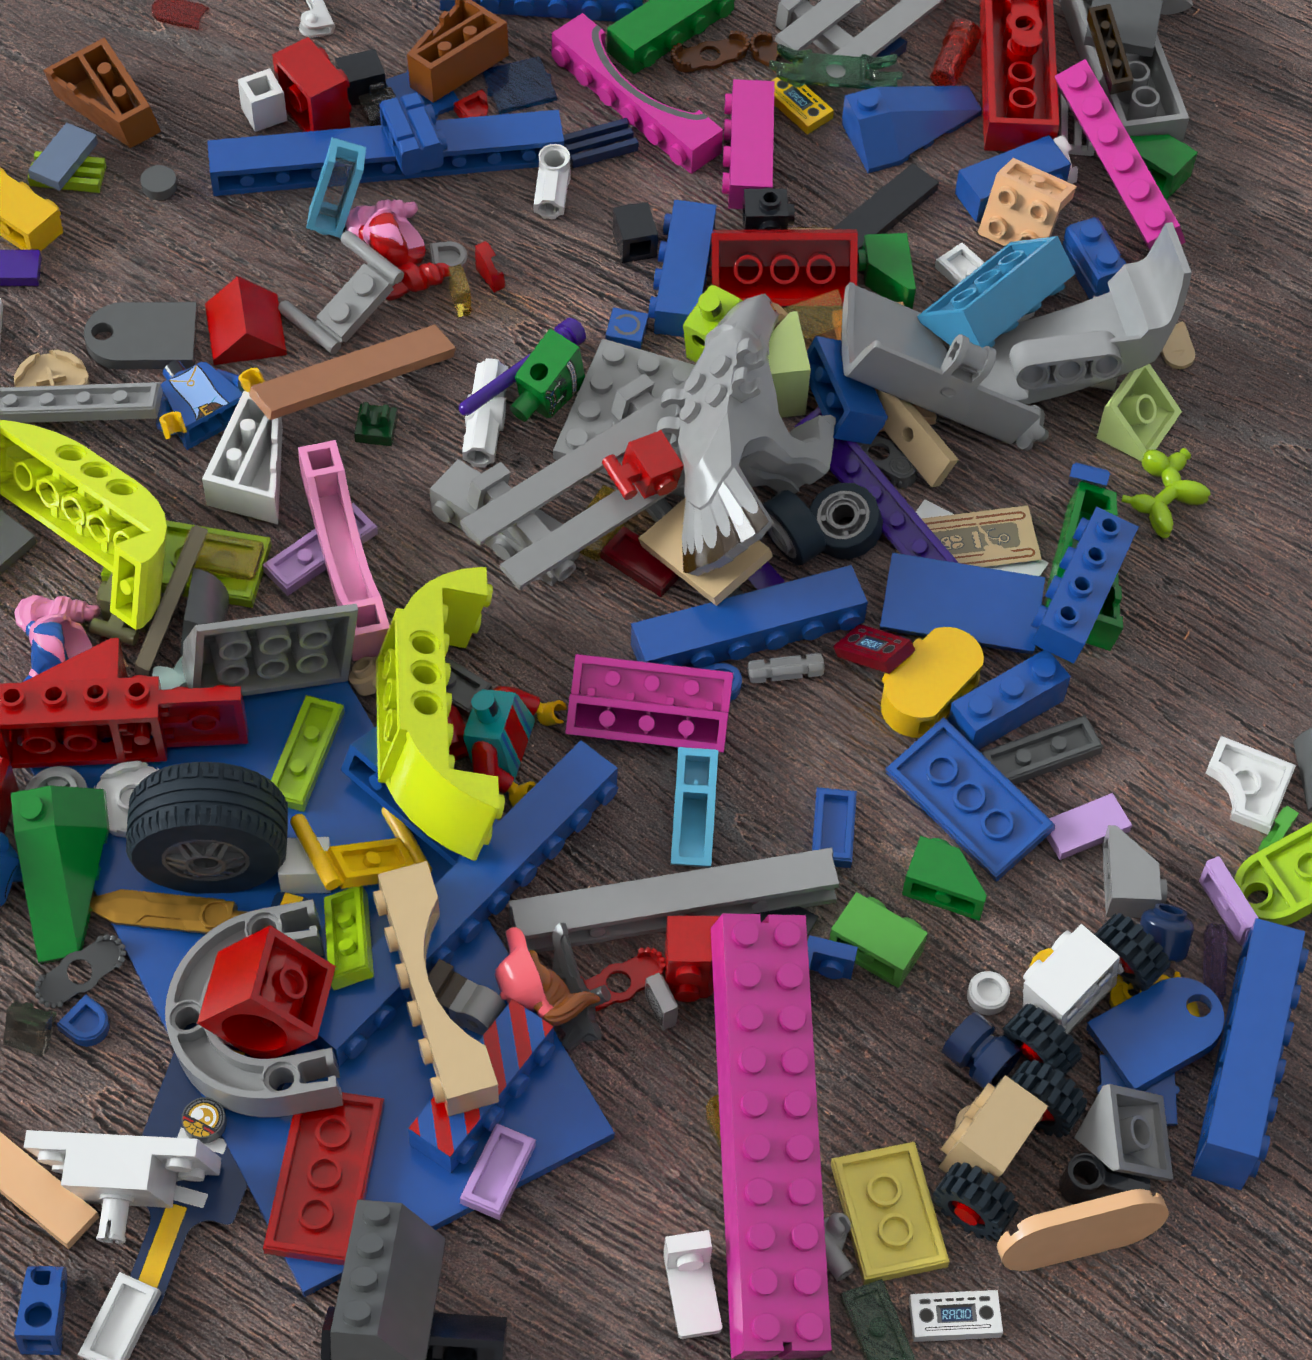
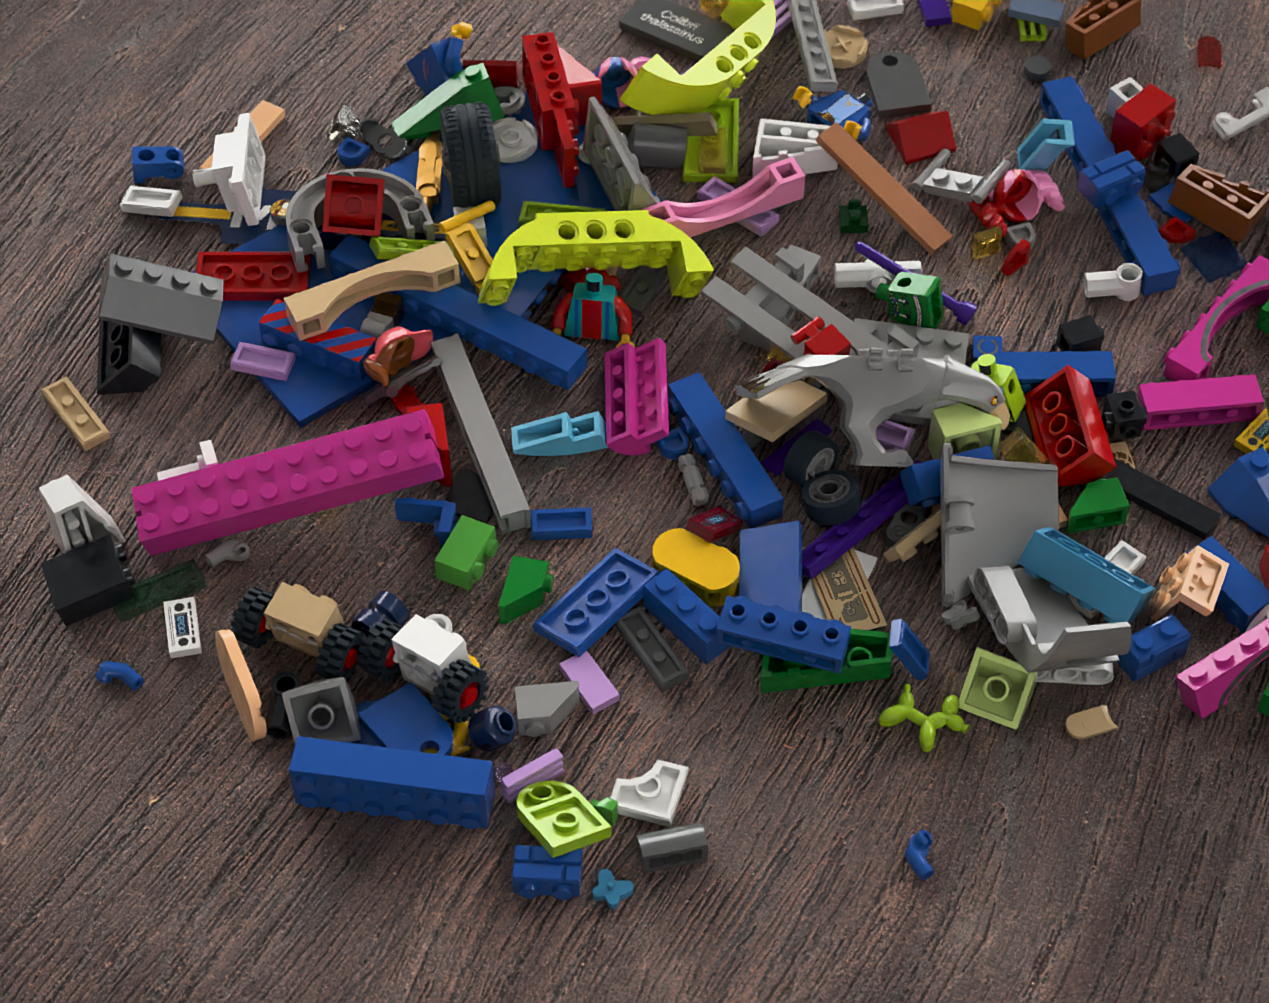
camera: 85 degrees right, 5 degrees down
(597, 138) = (1173, 310): dark blue tile -> none
(889, 1213) = (264, 571): light yellow tile -> none

